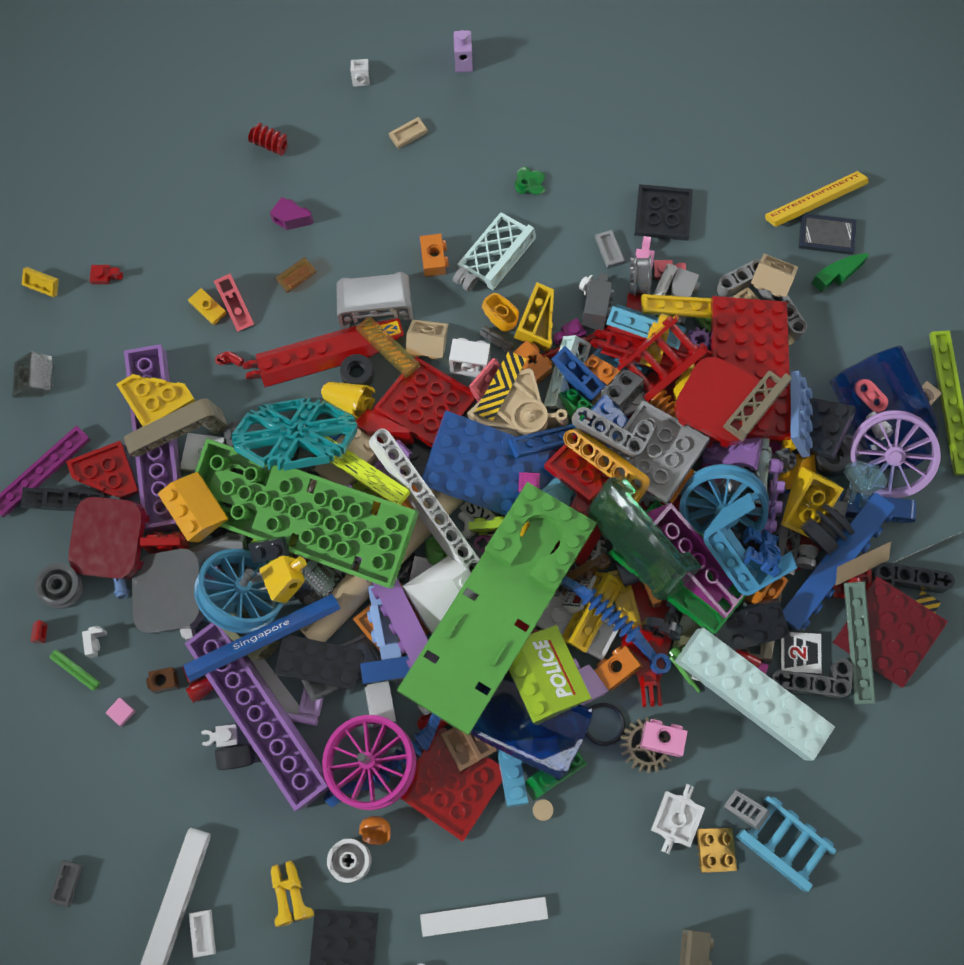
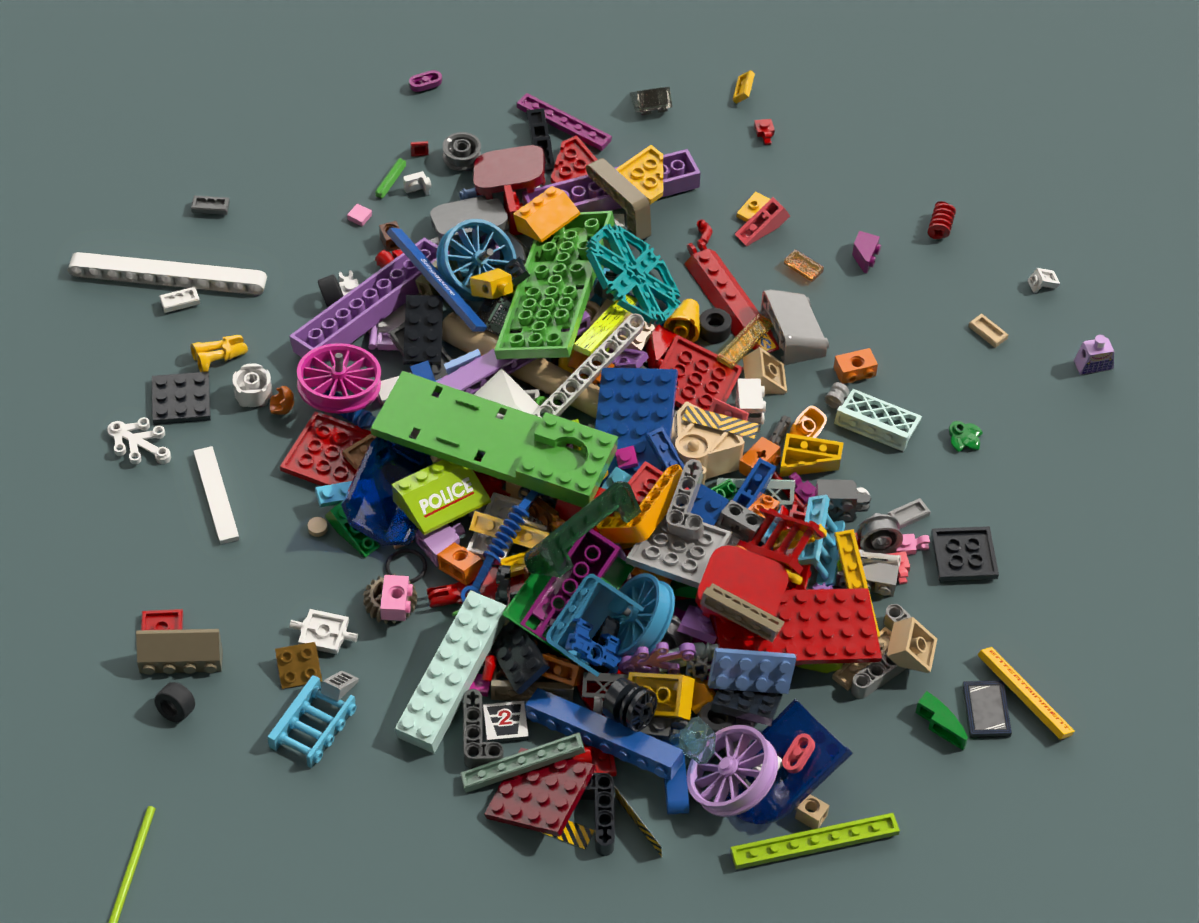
camera: 75 degrees right, 20 degrees down
(863, 563) = (606, 755): tan sticker -> none

